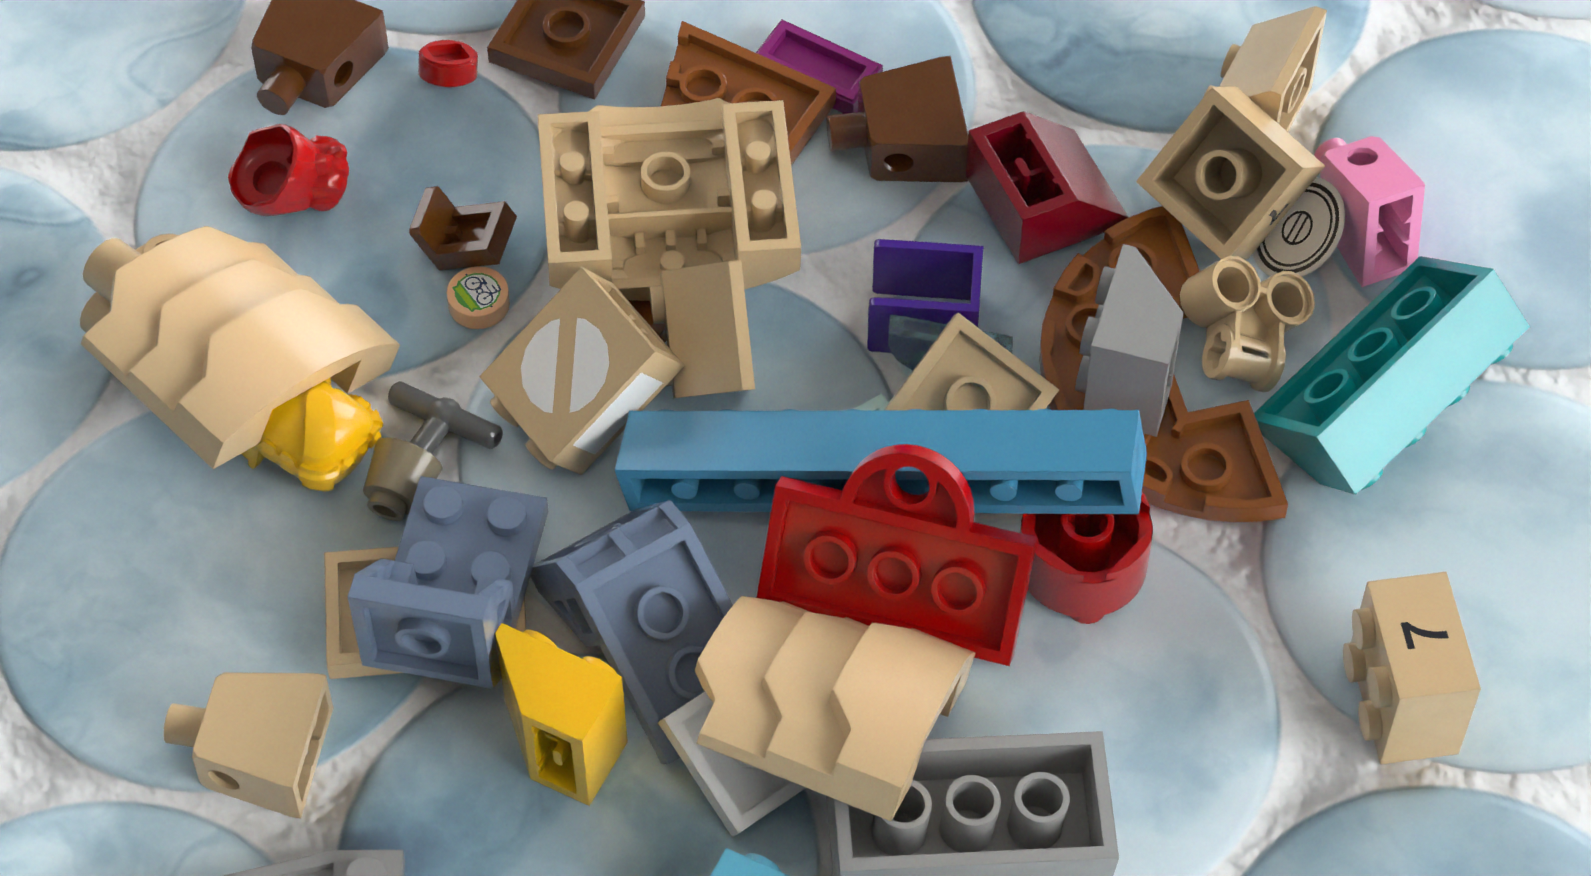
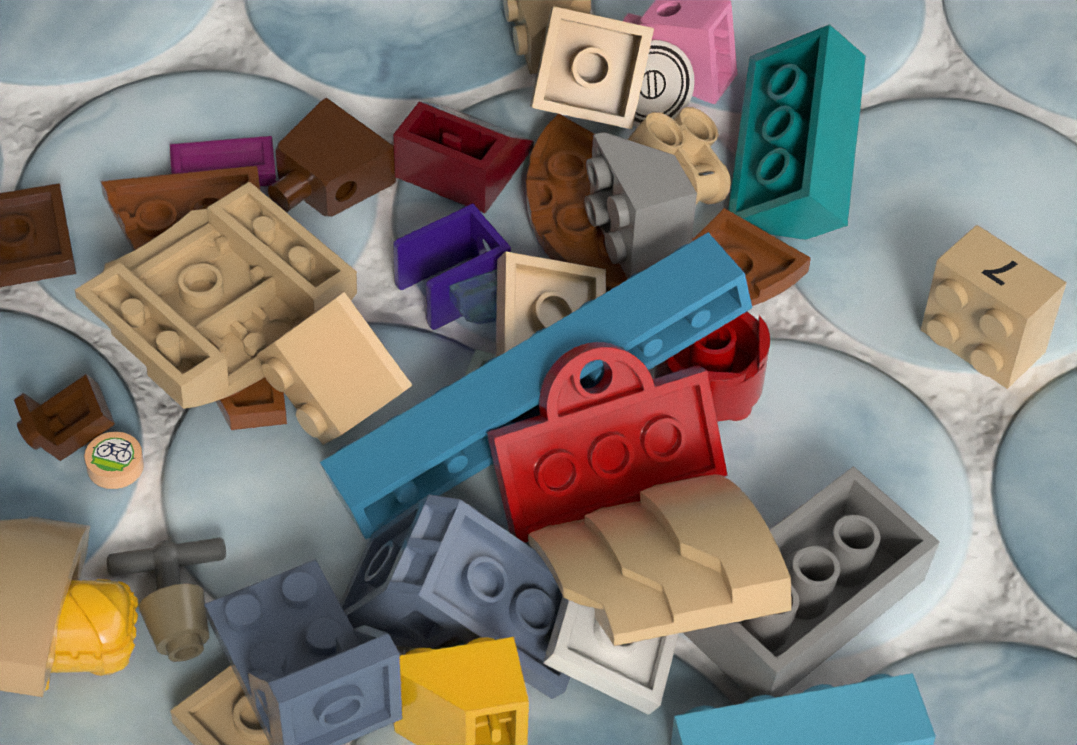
camera: 40 degrees left, 5 degrees down
(579, 372) = (258, 458): tan brick -> none

